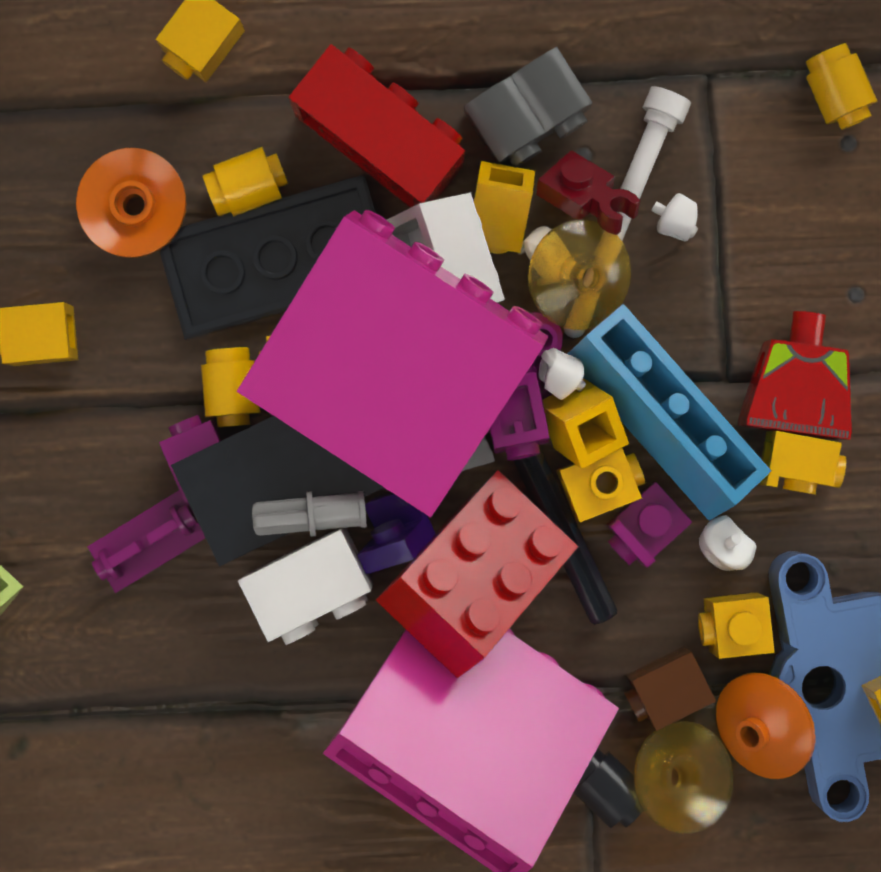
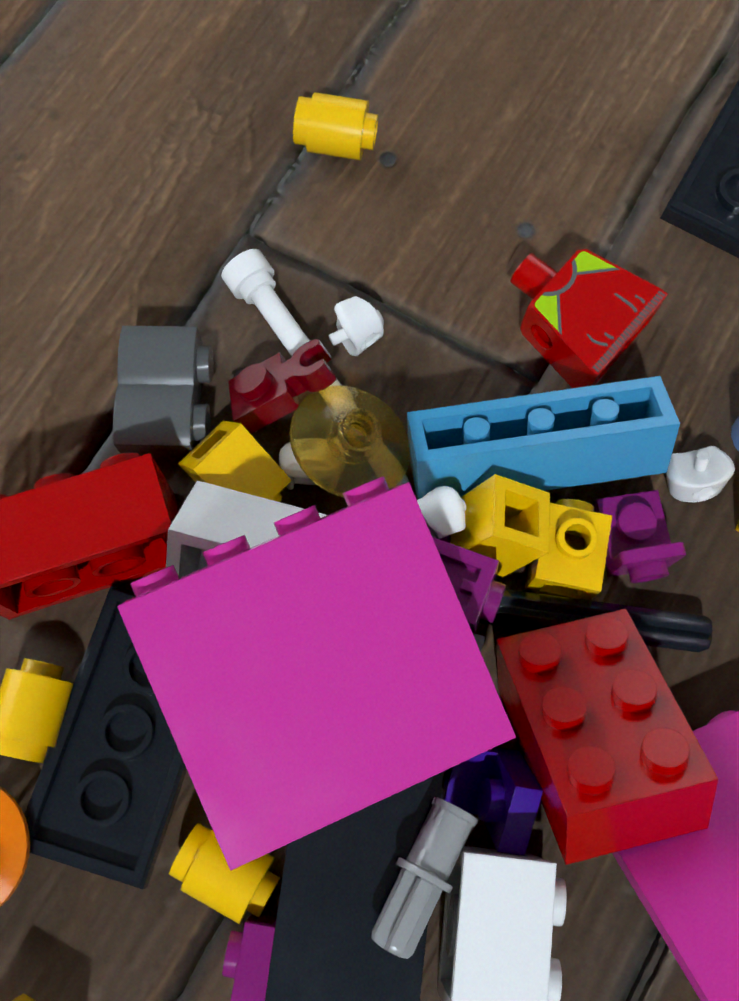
camera: 65 degrees left, 15 degrees down
(802, 462) = (660, 350): yellow brick -> none

